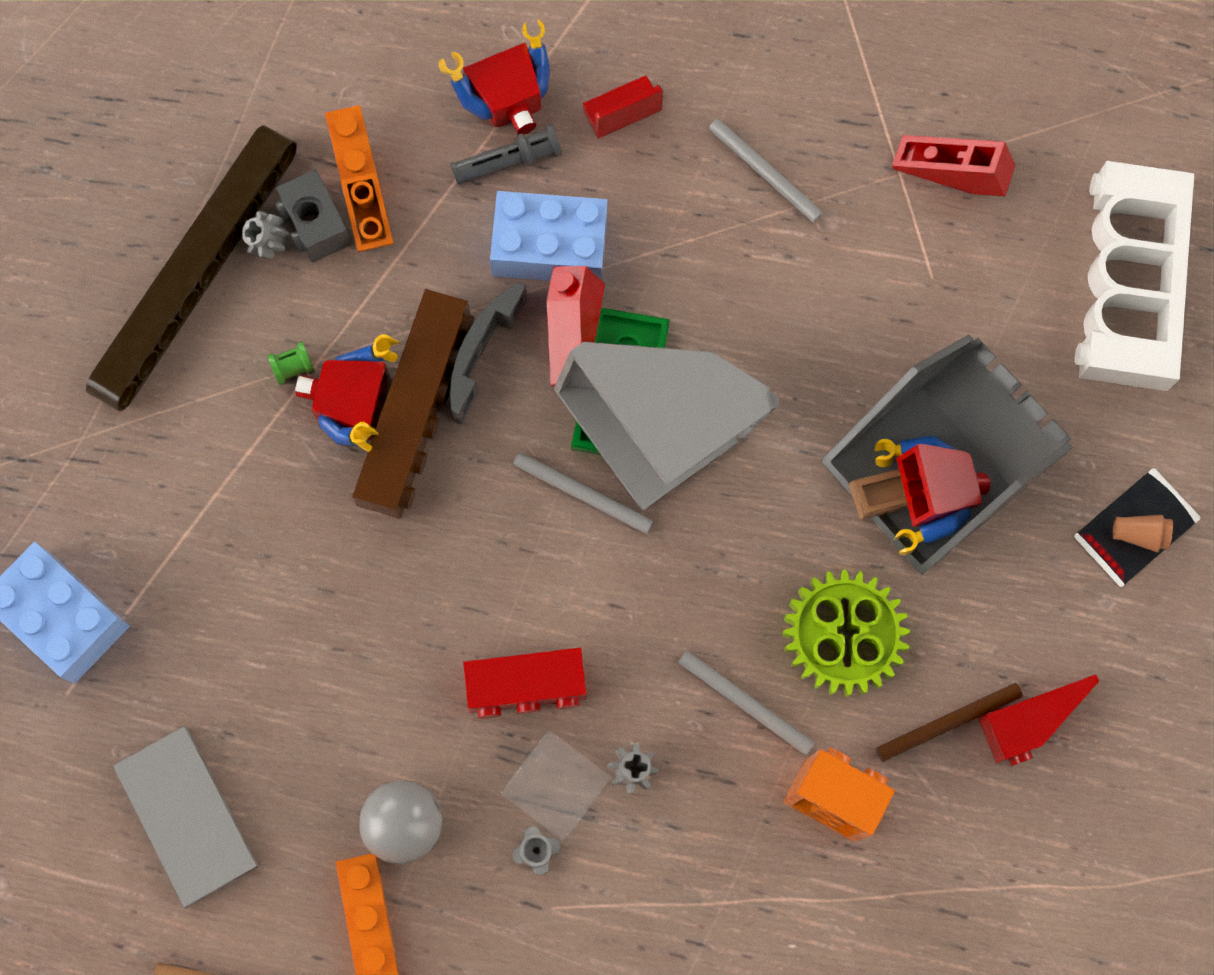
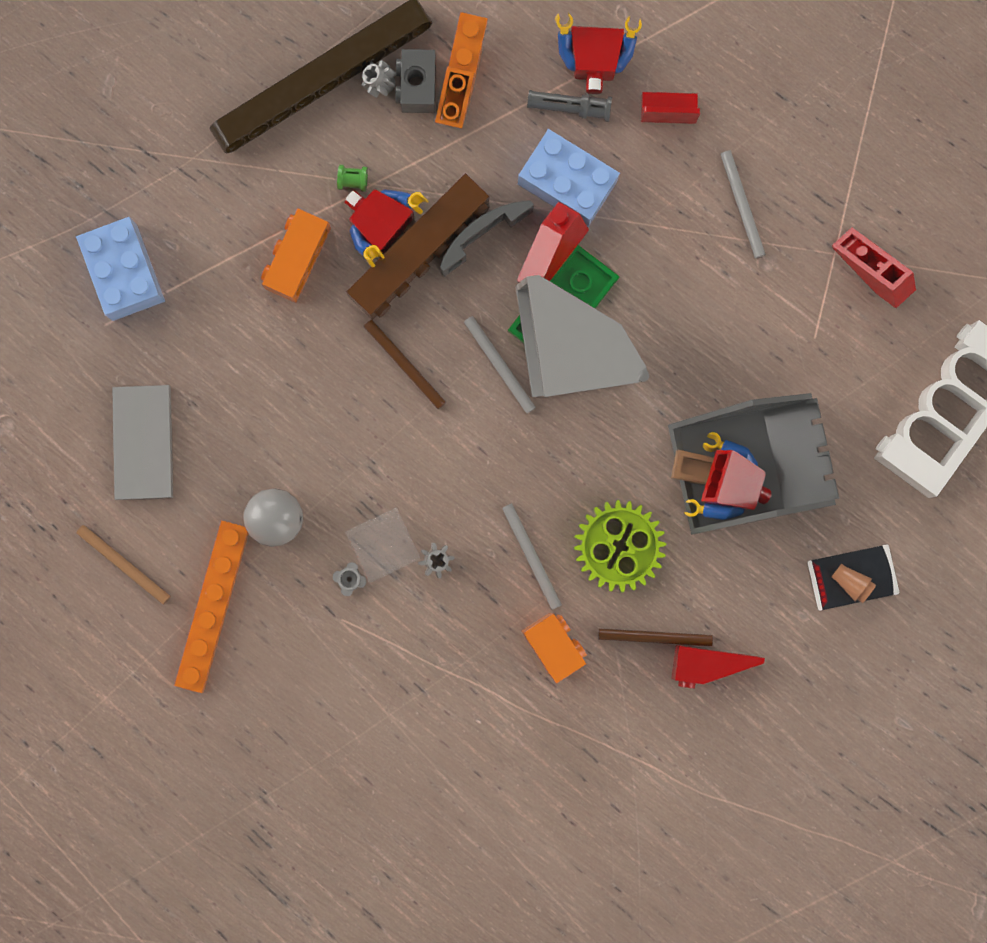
camera: 25 degrees right, 10 degrees up
(266, 487) = (295, 255): none -> orange brick
(468, 550) = (404, 364): none -> reddish brown bar
(525, 682) = (396, 470): red brick -> none

